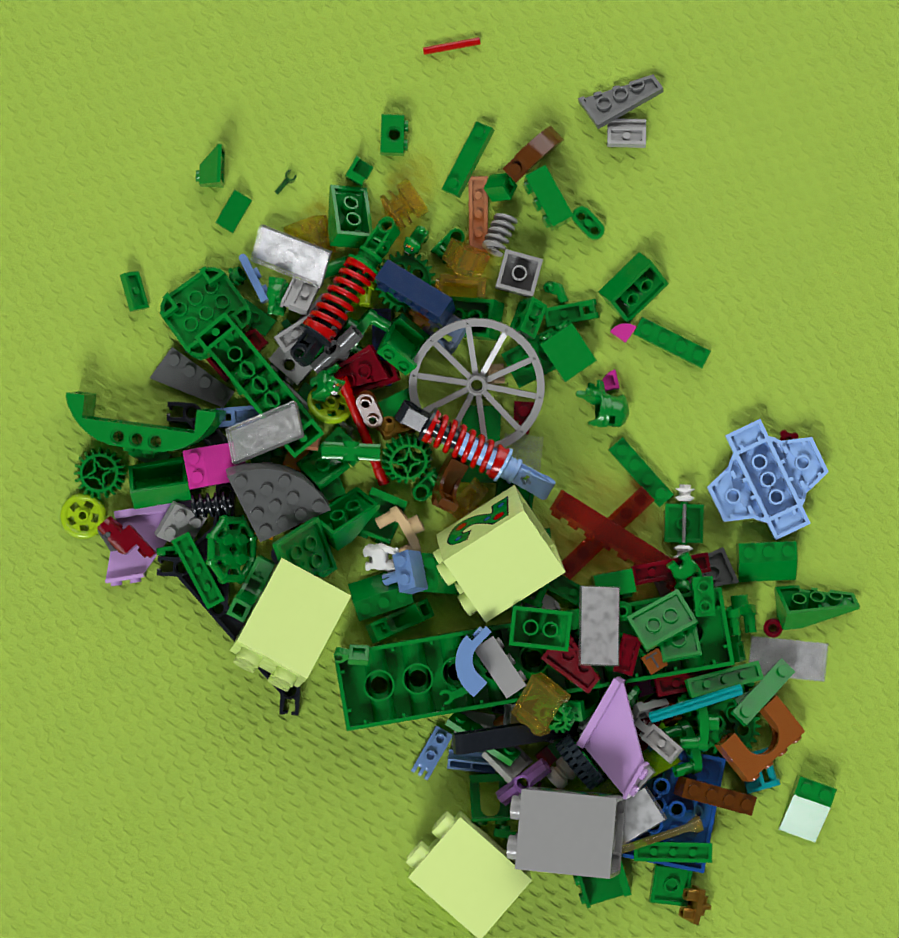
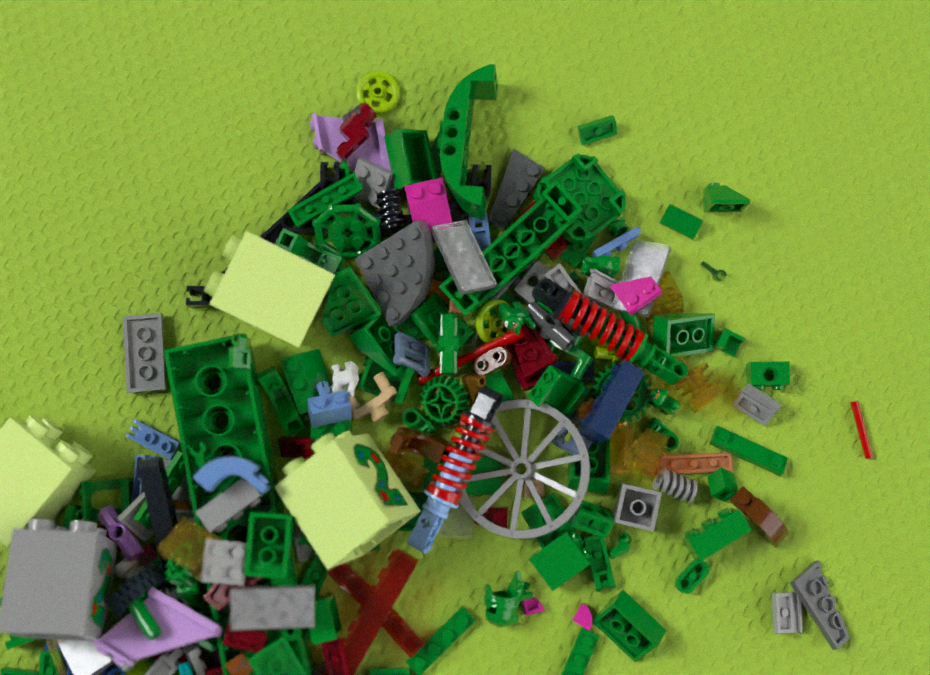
camera: 85 degrees right, 5 degrees down
(103, 482) = (425, 102): green gear -> none
(307, 262) = (636, 293): none -> dark pink wing
(344, 759) = (144, 353): none -> light grey plate
(353, 487) = (414, 349): none -> sand blue plate
(422, 149) = (756, 404): none -> light grey plate
(446, 607) = (296, 447): none -> dark red plate
(555, 670) = (224, 562): none -> light grey plate
(605, 749) = (145, 619): none -> green piece

